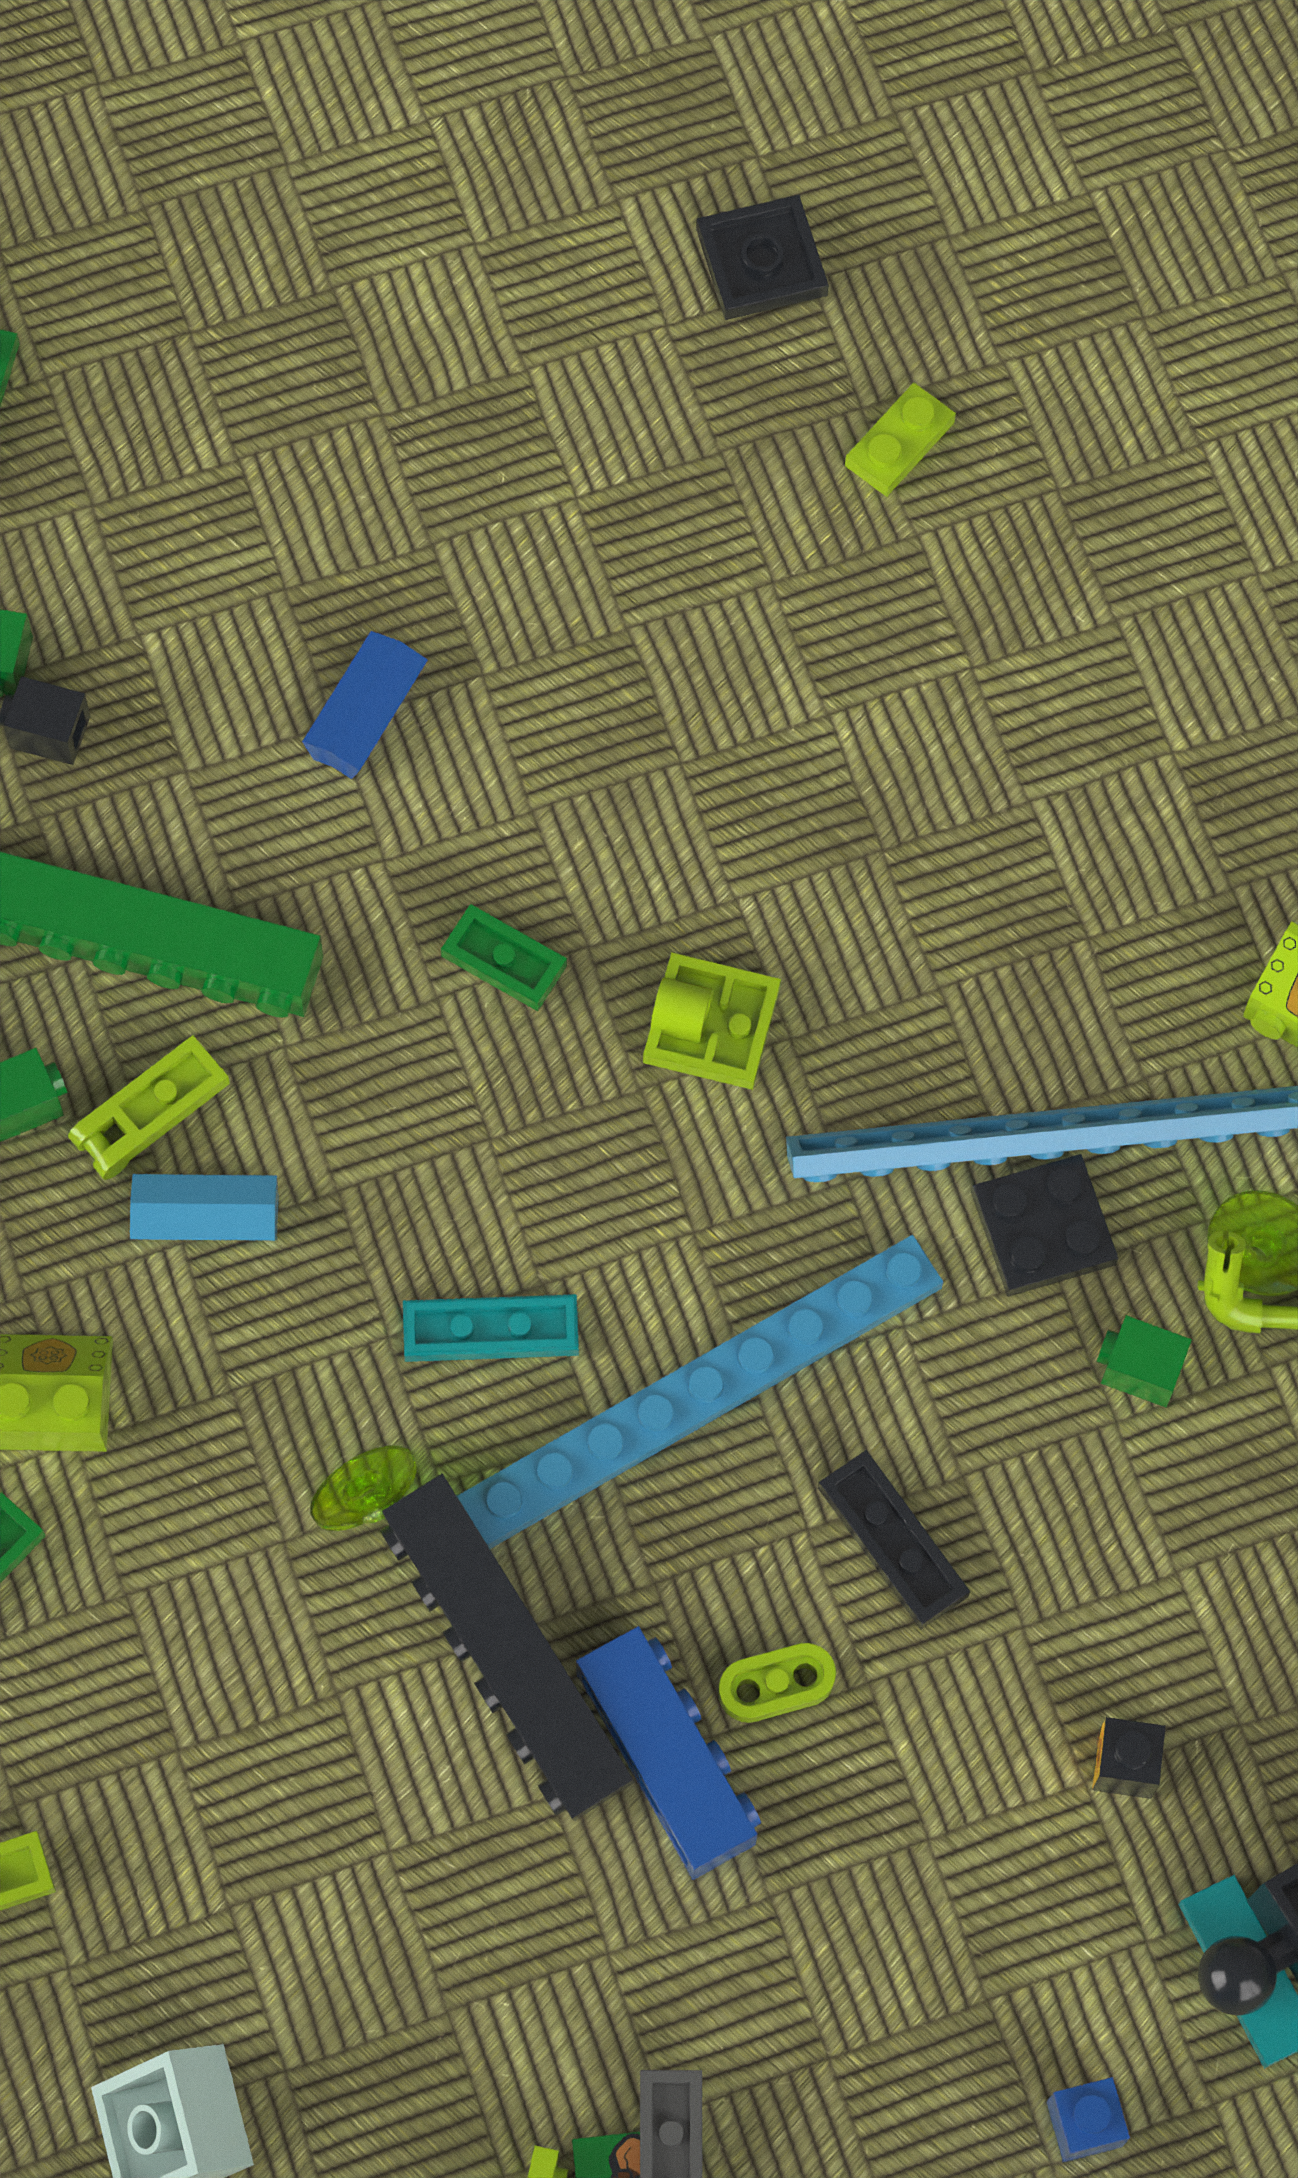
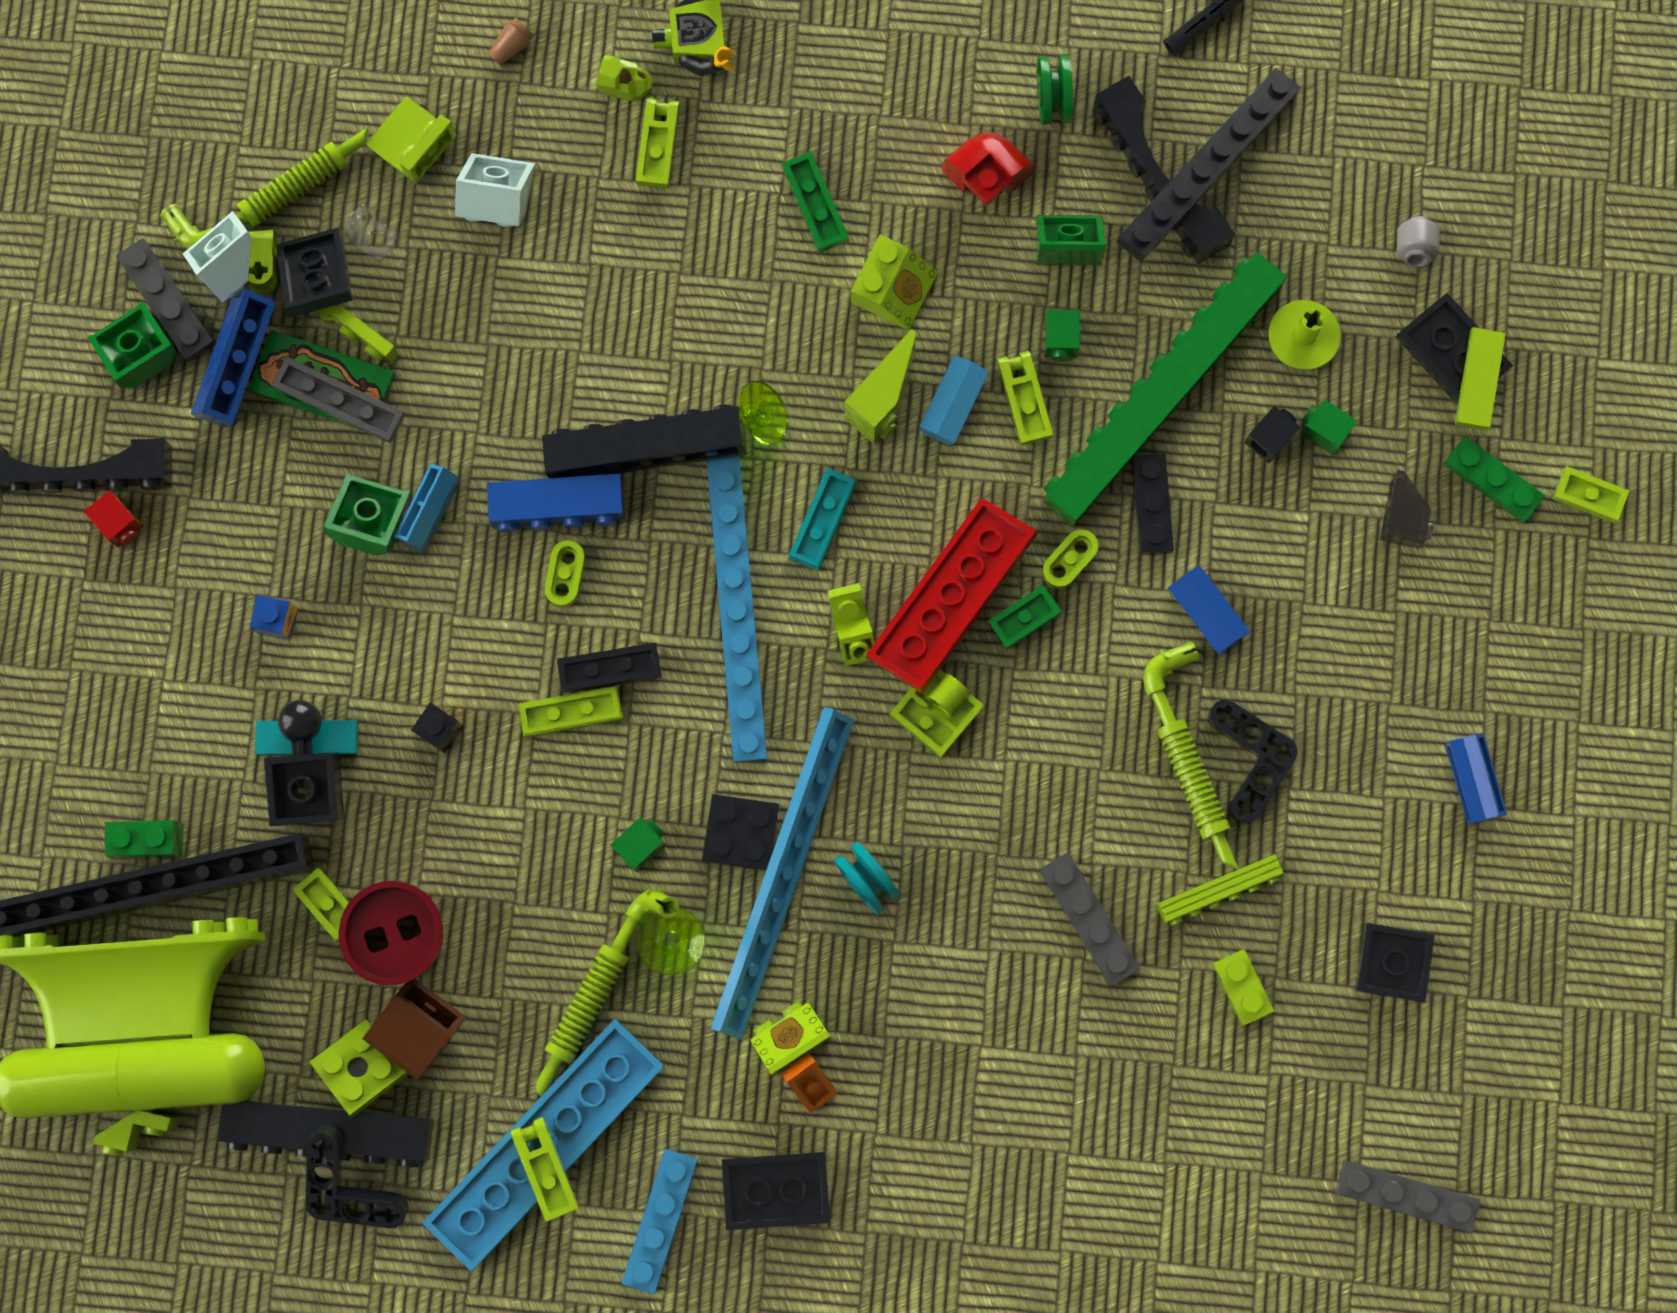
camera: 120 degrees right, 10 degrees up
(82, 495) = (1405, 514): none -> clear smoke slope
(236, 852) = (1152, 504): none -> black plate
(242, 1307) = (878, 398): none -> lime slope
(382, 929) = (1070, 560): none -> lime plate
(441, 257) = (1475, 778): none -> blue piece
(523, 1070) = (951, 595): none -> red plate
(554, 538) = (1266, 761): none -> black beam
(597, 652) = (1183, 751): none -> lime piece
(642, 1203) = (851, 623): none -> lime slope
(776, 523) = (1224, 887): none -> lime piece
(779, 1946) = (427, 508): none -> dark azure piece
(840, 2051) = (366, 515): none -> green slope
(911, 681) = (1089, 919): none -> dark grey plate
(992, 1571) = (570, 711): none -> lime tile
(1023, 993) = (867, 878): none -> teal wheel
(1075, 124) = (1407, 1196): none -> dark grey plate

